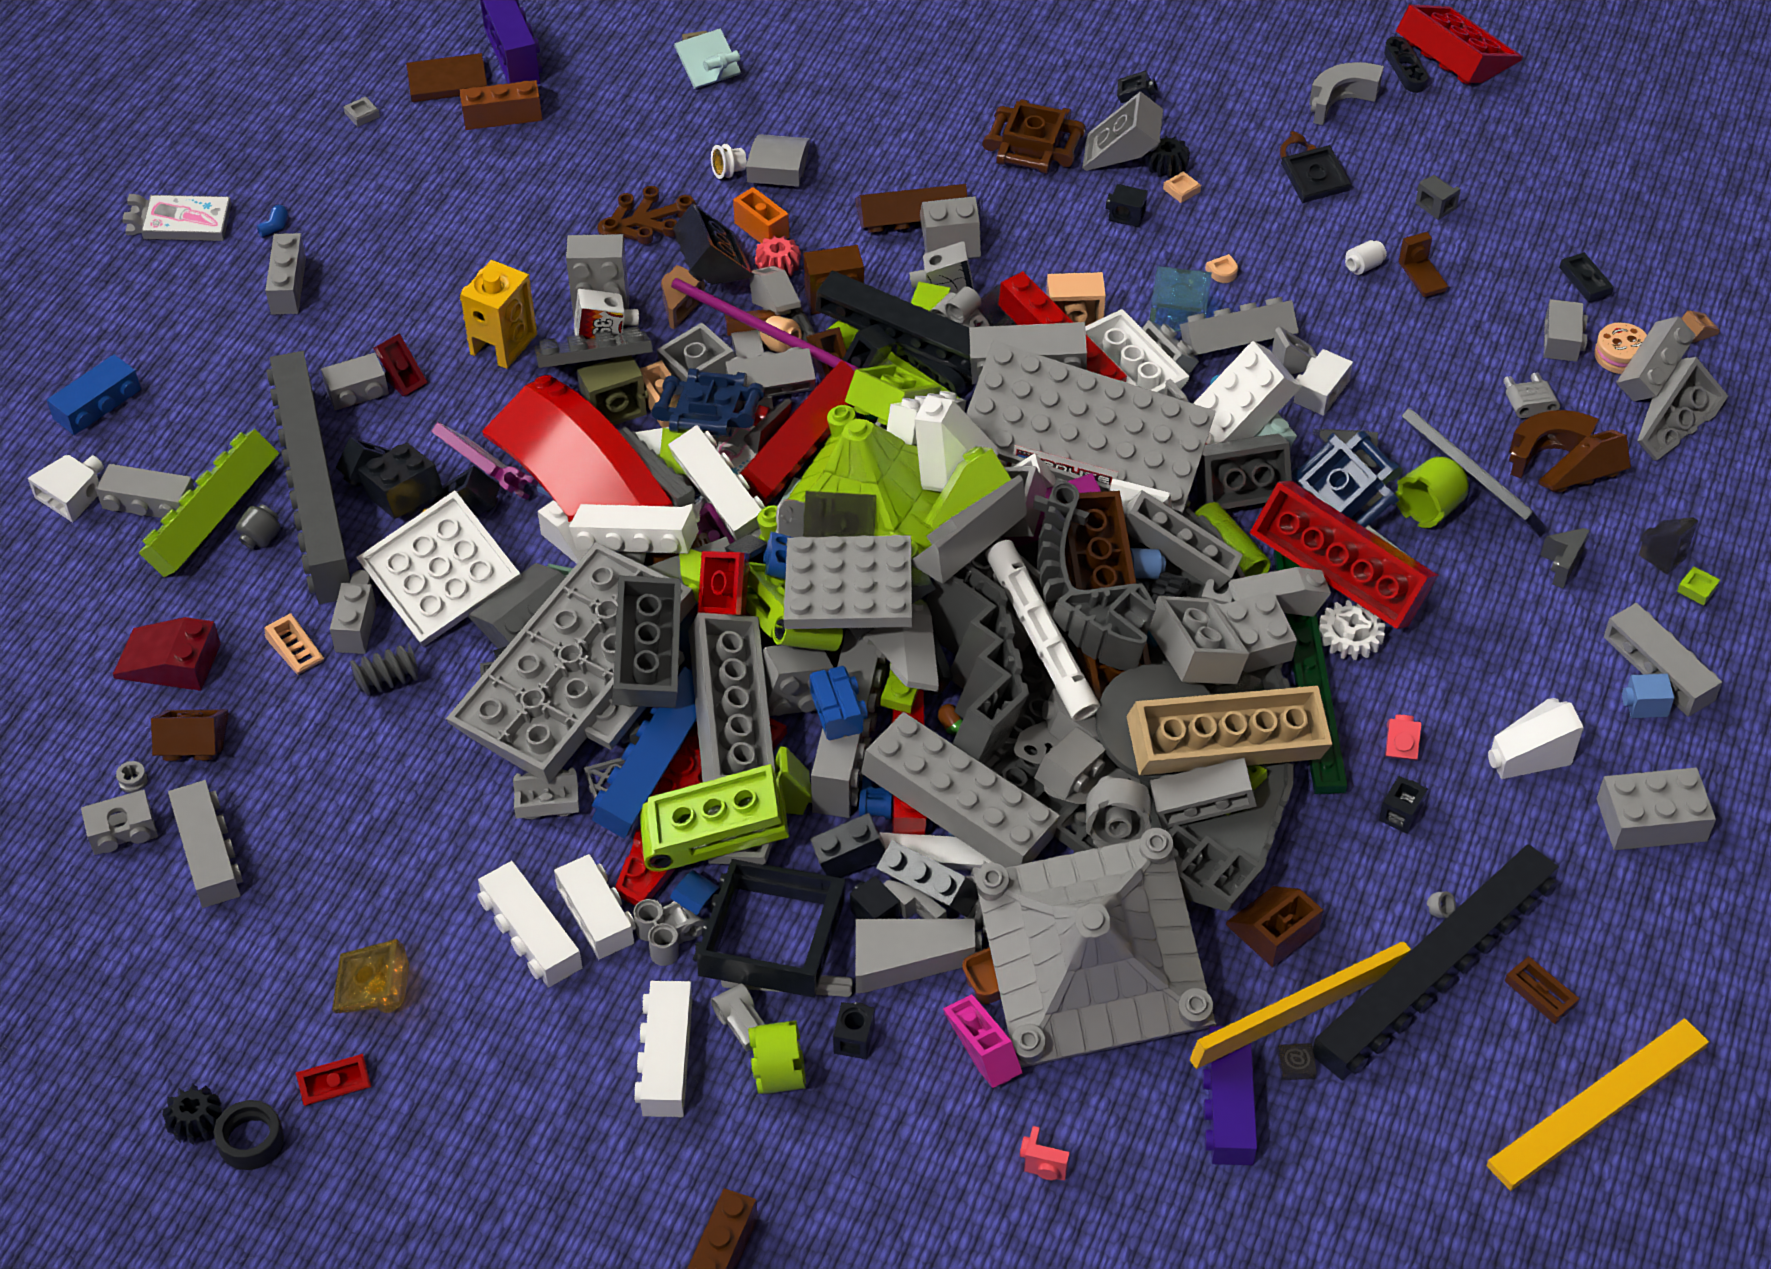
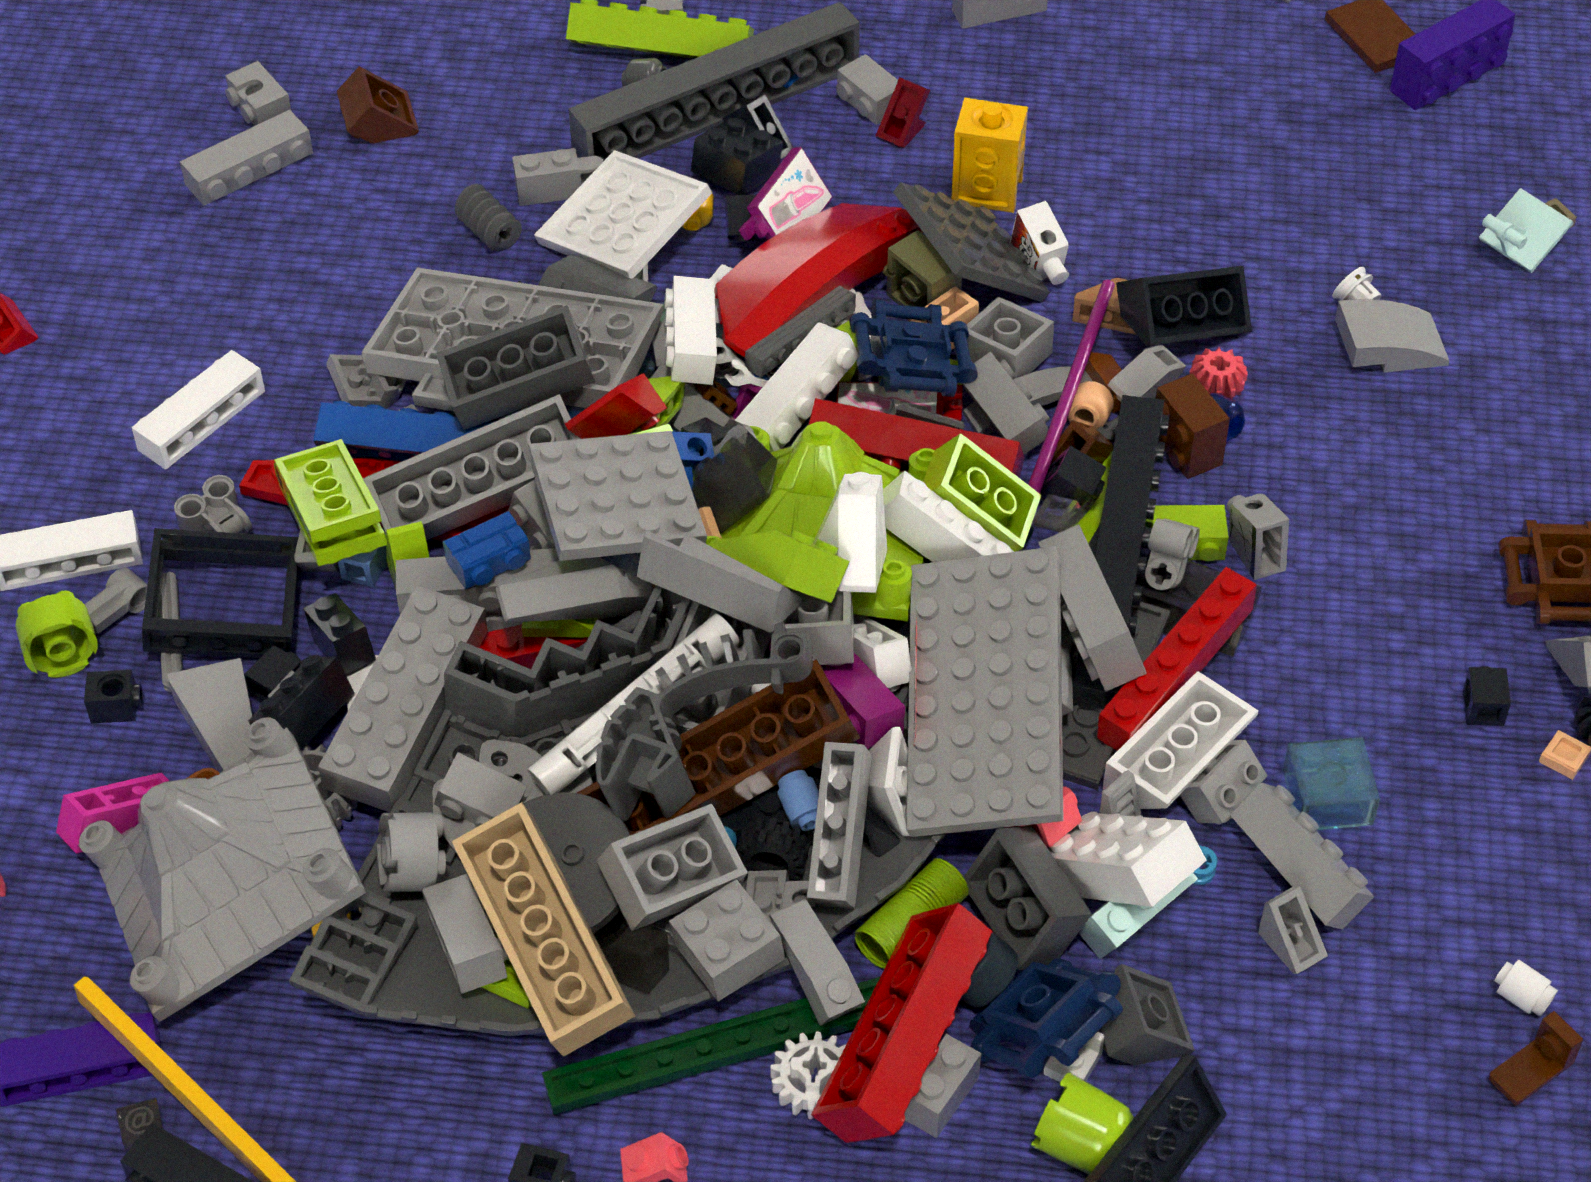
camera: 75 degrees right, 0 degrees up
(135, 784) = (312, 90): light grey bush -> none
(170, 653) = (468, 73): dark red slope -> none
(289, 624) = (513, 130): light nougat slope -> none
(372, 978) = (111, 316): clear yellow slope -> none
(501, 105) = (1351, 82): dark orange slope -> none
(595, 906) = (230, 448): white brick -> none
(597, 265) = (1086, 214): light grey brick -> none
(643, 217) = (1204, 226): reddish brown plant -> none
(694, 892) = (252, 516): blue slope -> none
(760, 216) = (1268, 339): orange brick -> none
(901, 207) = (1368, 478): reddish brown slope -> none
(950, 223) = (1333, 518): light grey slope -> none
(1078, 295) = (1257, 664): light nougat brick -> none
(1223, 269) = (1427, 829): light nougat tile -> none
(1277, 923) = (322, 1062): reddish brown slope -> none
(1323, 381) = (1251, 973): white brick -> none

